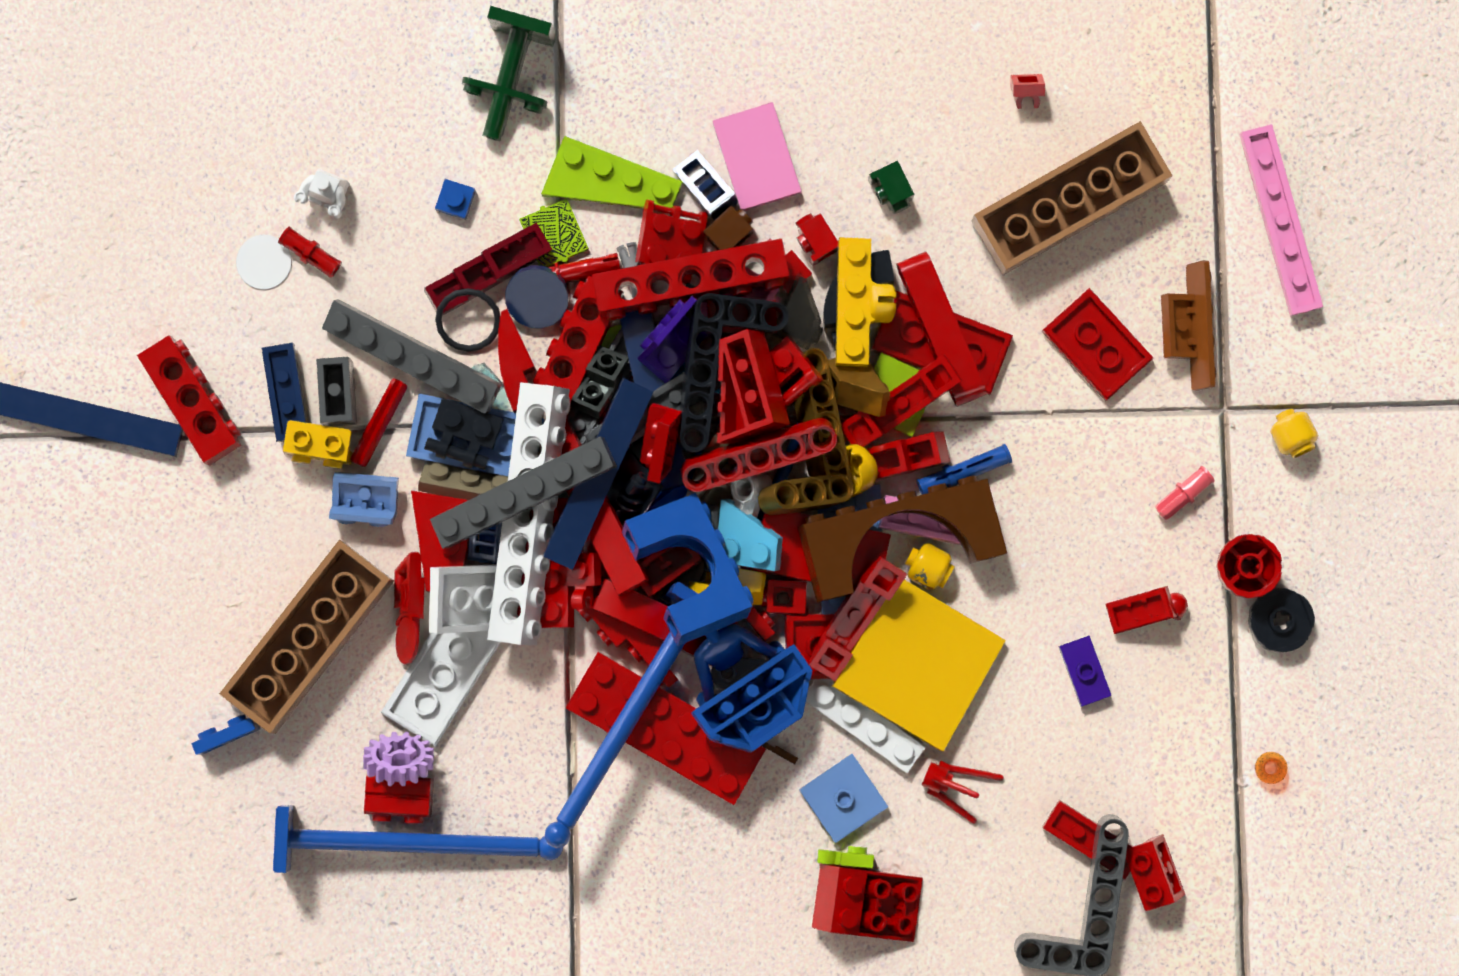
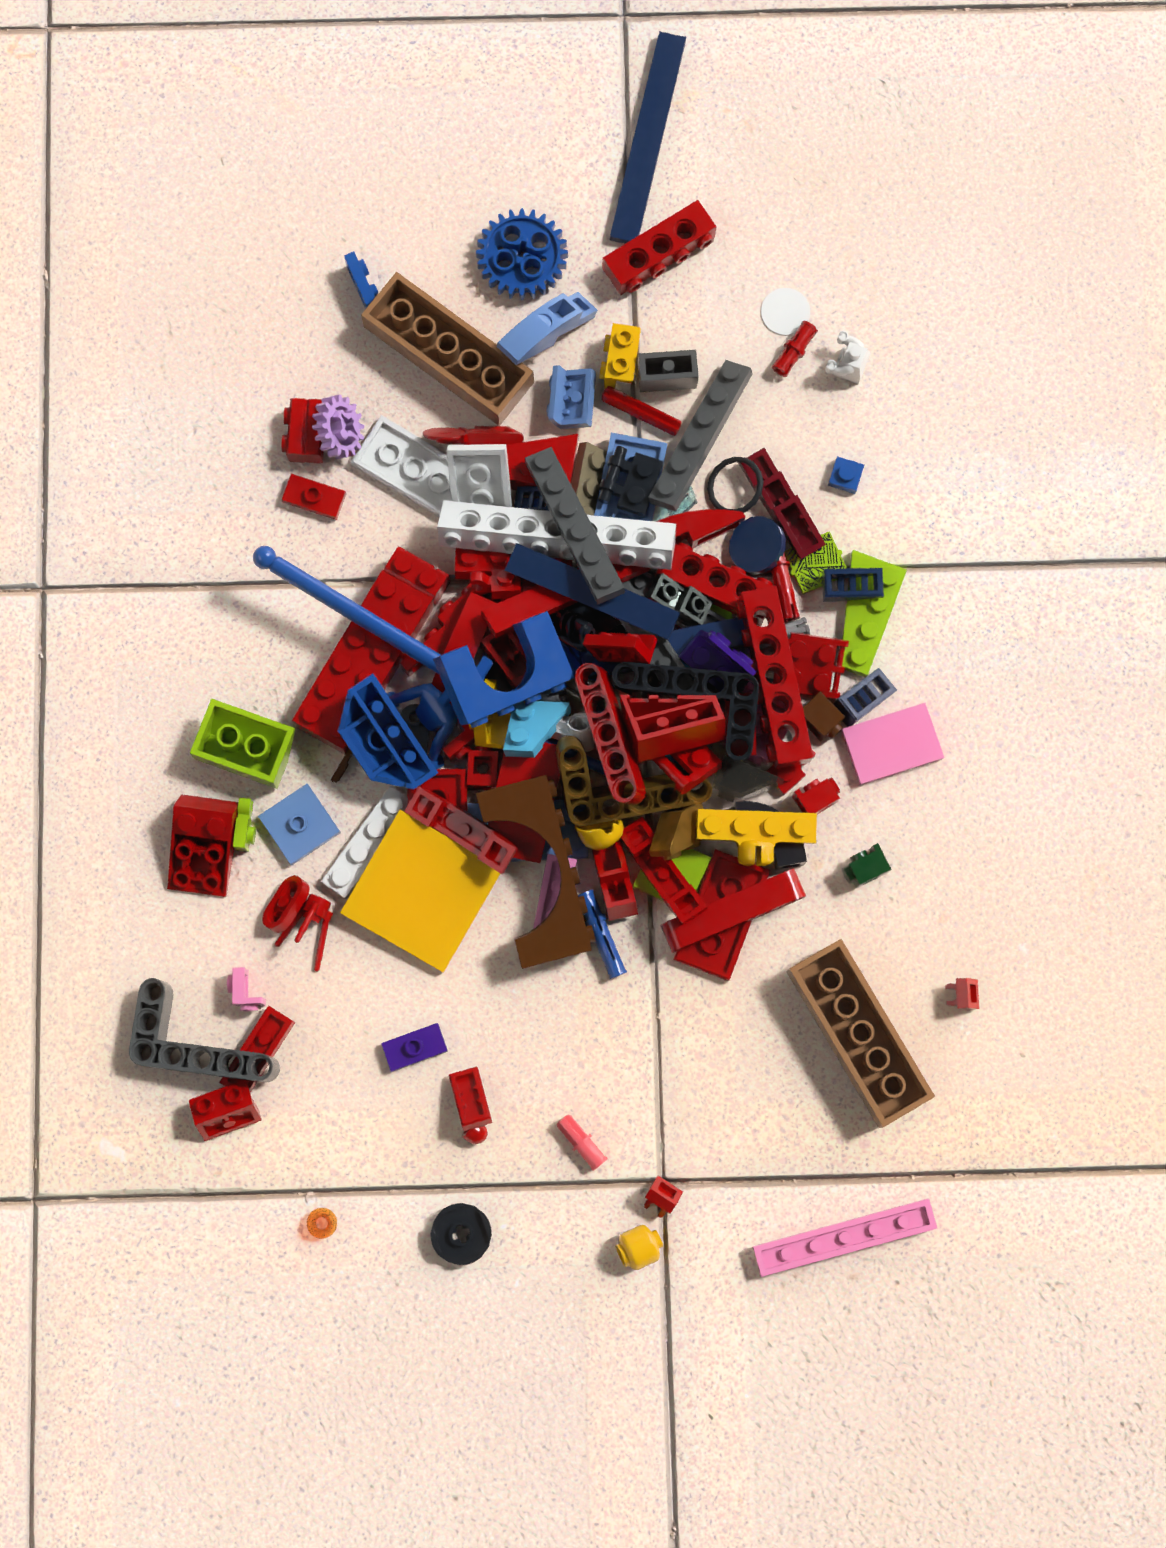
camera: 85 degrees right, 5 degrees down
(222, 562) = (529, 231): none -> blue gear
(283, 387) = (673, 328): dark blue plate -> none
(285, 525) = (544, 325): none -> medium blue slope
(288, 838) = (269, 333): blue piece -> none
(473, 787) = (313, 496): none -> red plate
(521, 32) = (994, 526): dark green piece -> none
(567, 670) = (418, 574): none -> red brick
(582, 222) = (852, 573): none -> dark blue slope
(757, 858) = (243, 743): none -> lime slope
(929, 566) = (511, 901): yellow head -> none
(931, 810) = (285, 904): none -> red plate
(1022, 860) = (238, 986): none -> bright pink bracket
(1097, 344) = (722, 1061): red tile -> none
(1189, 325) = (741, 1145): dark orange bracket -> none
(1240, 407) = (663, 1195): none -> red tile
(1249, 566) = (510, 1199): red cylinder -> none

